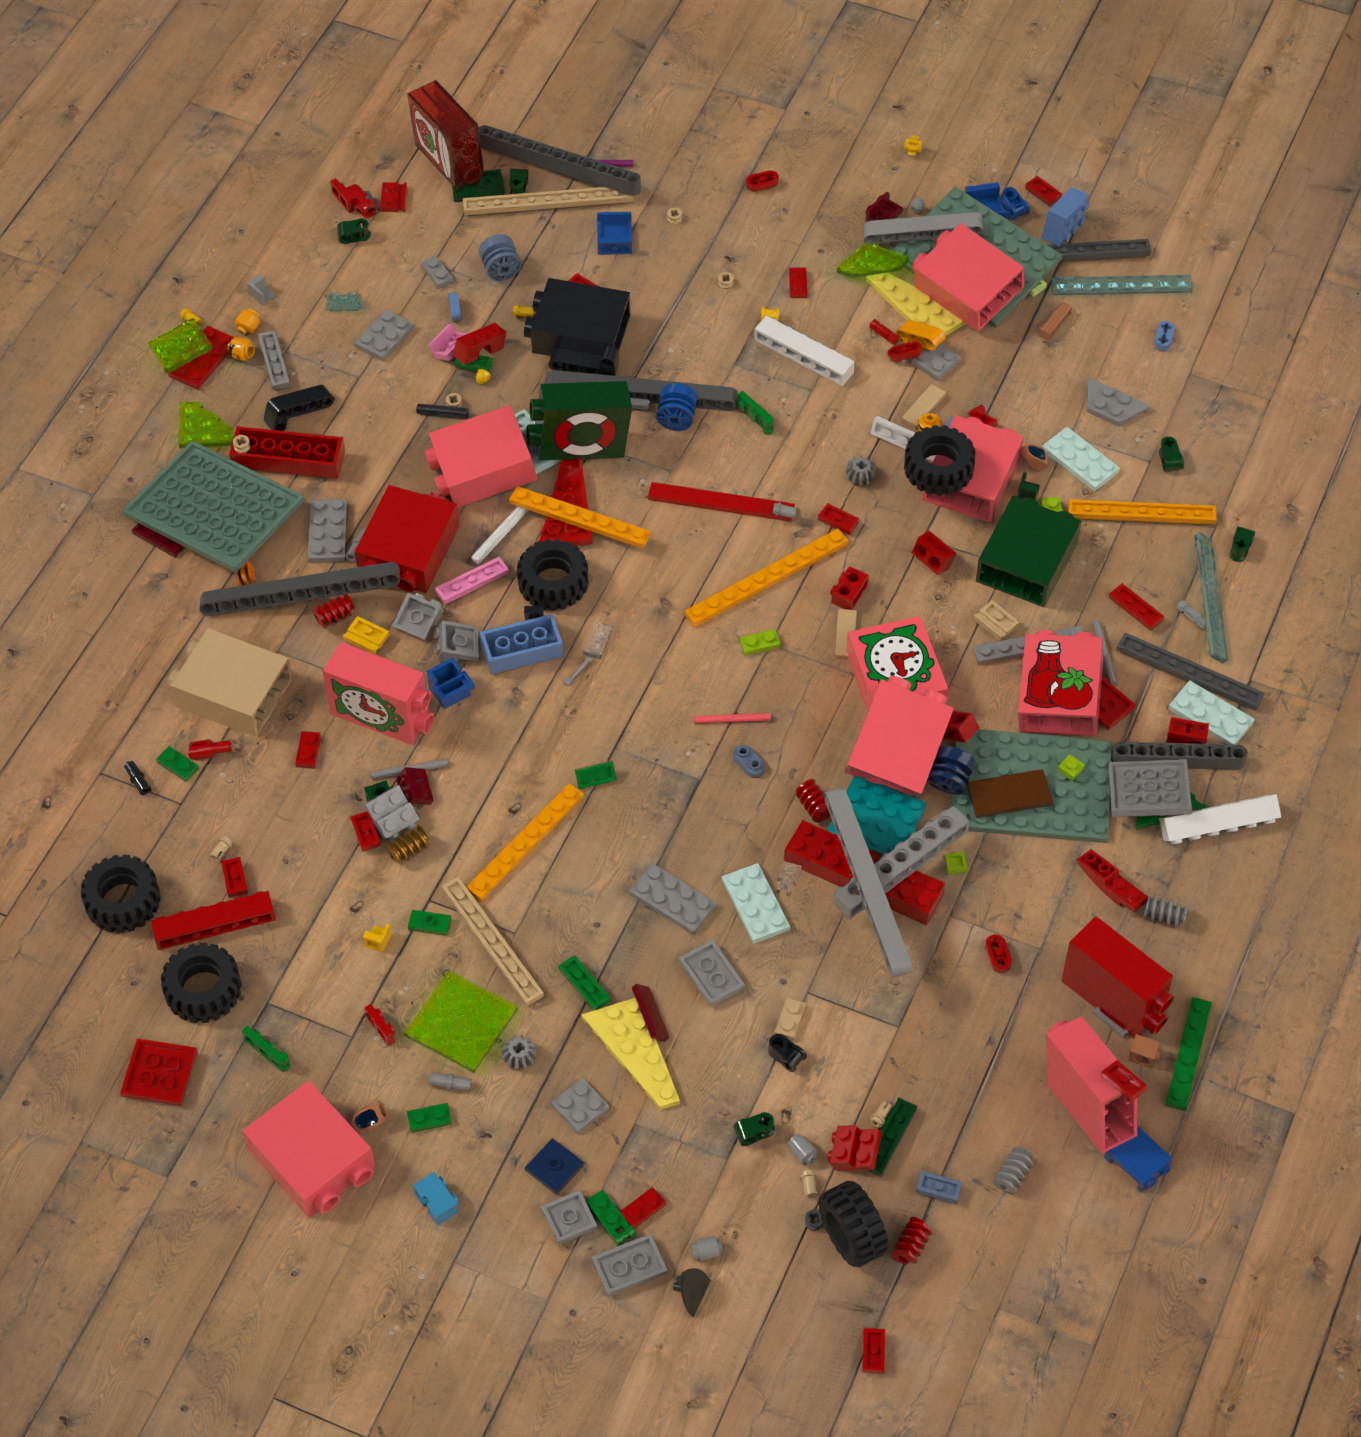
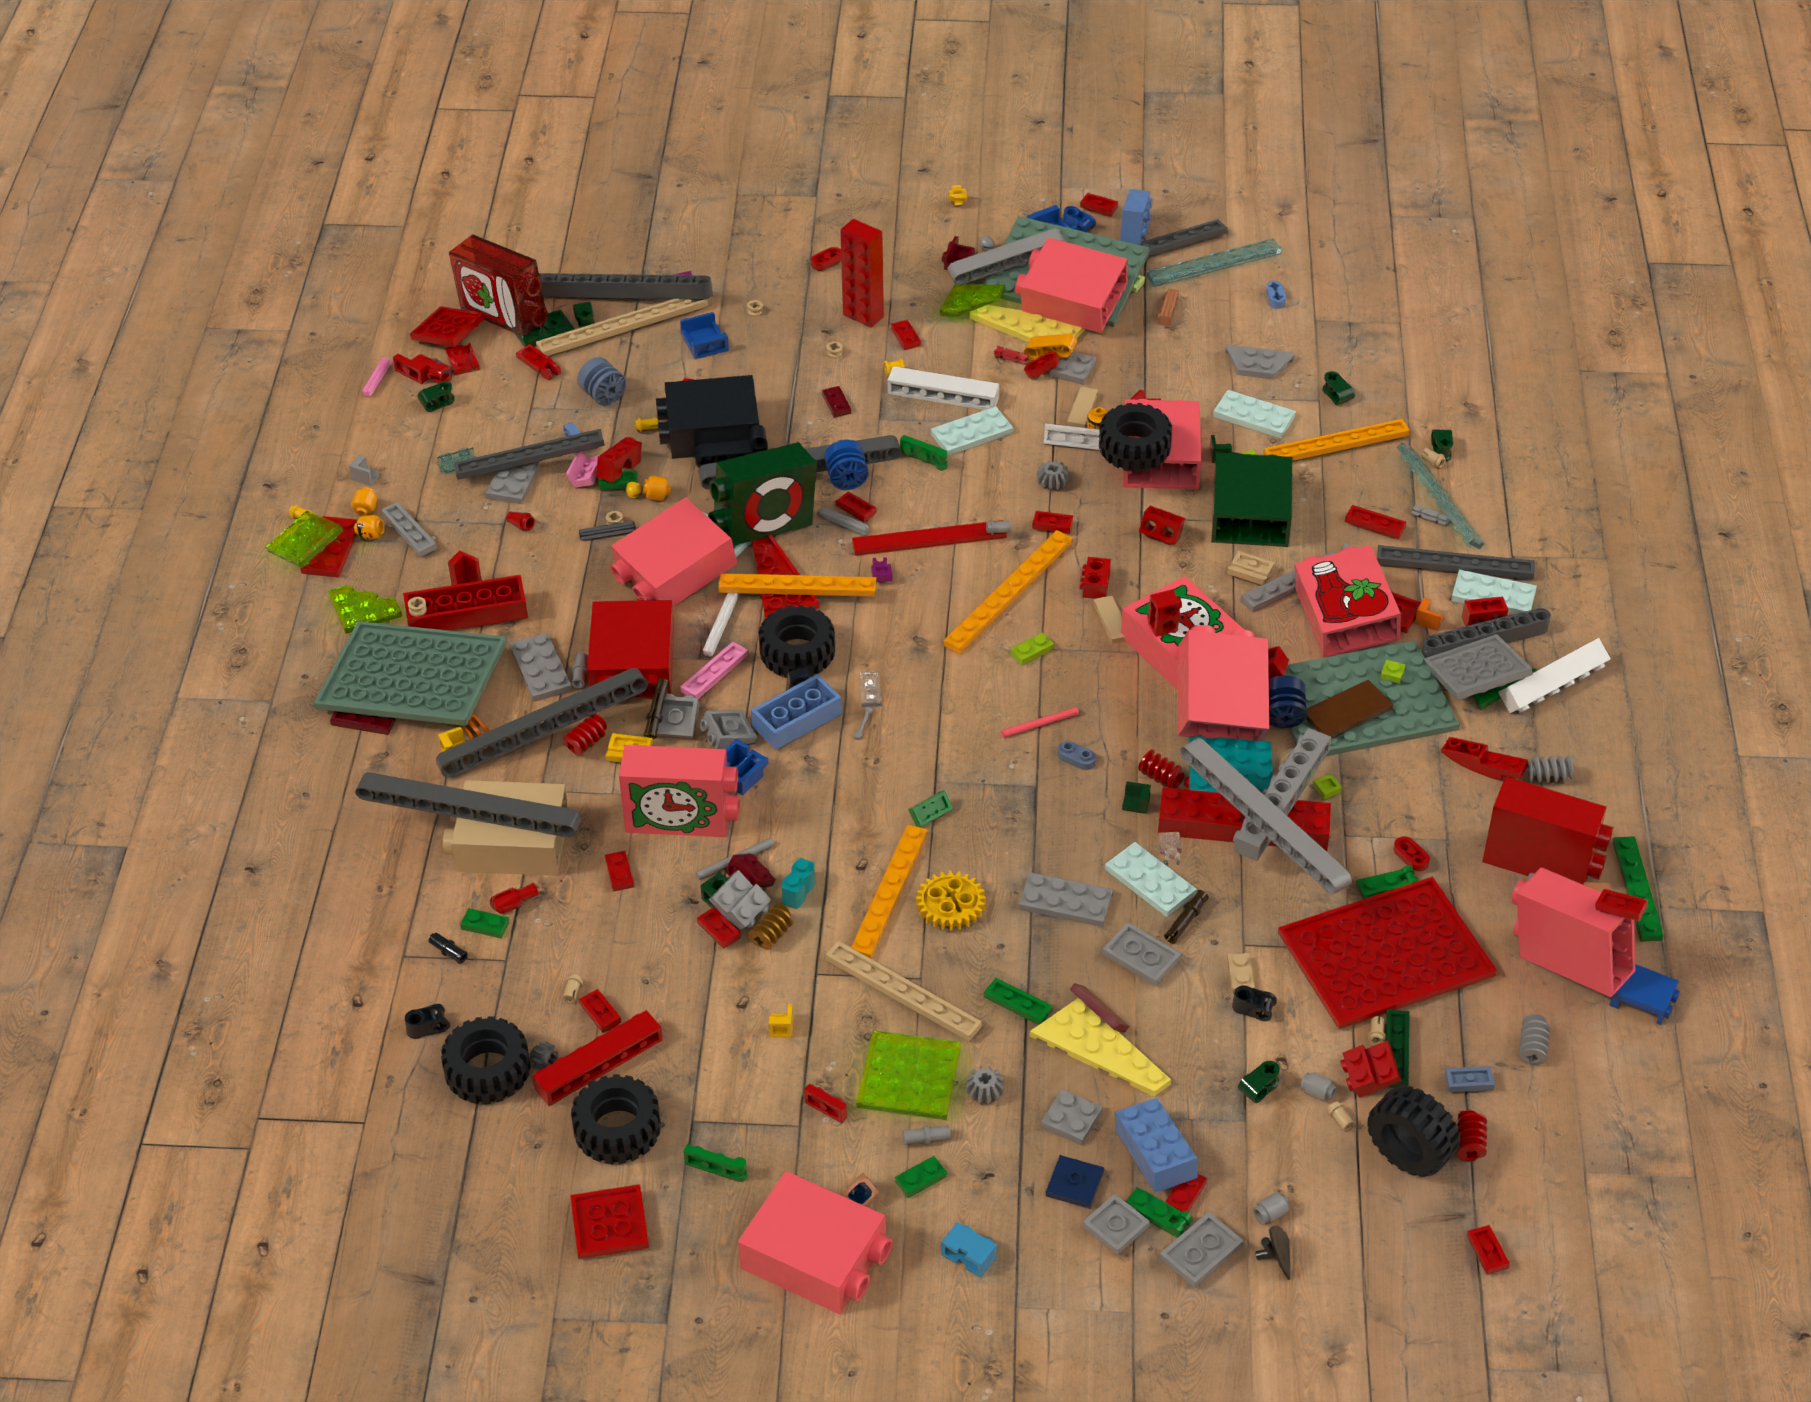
camera: 20 degrees left, 10 degrees down
(92, 840) = (425, 1022): none -> black piece
(169, 904) = (543, 1055): none -> dark grey gear
(198, 654) = (469, 804): none -> dark grey beam
(221, 580) = (451, 738): none -> yellow panel
(294, 404) = (437, 567): black beam -> none
(298, 418) = (464, 568): none -> red panel
(311, 195) = (376, 377): none -> bright pink axle
(372, 379) = (521, 520): none -> red cone
(392, 160) = (447, 326): none -> red plate
(397, 611) = (655, 716): none -> dark brown pin
(404, 315) = (529, 454): none -> dark grey plate
(429, 922) = (828, 993): green plate -> none
(437, 272) = (540, 412): light grey plate -> none
(448, 811) = (798, 883): none -> teal brick
(457, 218) = (538, 361): none -> red hinge
(502, 381) = (656, 488): none -> light orange head
(552, 871) = (950, 900): none -> yellow gear
(633, 1158) = (1156, 1145): none -> medium blue brick
(652, 461) = (843, 520): none -> light grey axle
(662, 523) = (881, 570): none -> magenta plate
(669, 451) = (856, 506): none -> red plate
(703, 336) = (836, 401): none -> dark red plate
(771, 214) = (862, 272): none -> red brick
(775, 945) = (1191, 910): none -> dark brown pin
(780, 820) = (1136, 797): none -> dark green panel
(811, 401) = (972, 431): none -> light aqua plate
(813, 1213) = (1365, 1142): dark grey bush -> none
(877, 651) = (1164, 612): none -> red brick
(927, 1041) = (1386, 952): none -> red plate
(963, 975) = (1385, 882): none -> green plate
(1035, 456) = (1213, 420): nougat rock -> none
(1135, 720) = (1426, 617): none -> orange panel
(1228, 558) = (1436, 459): none -> tan pin

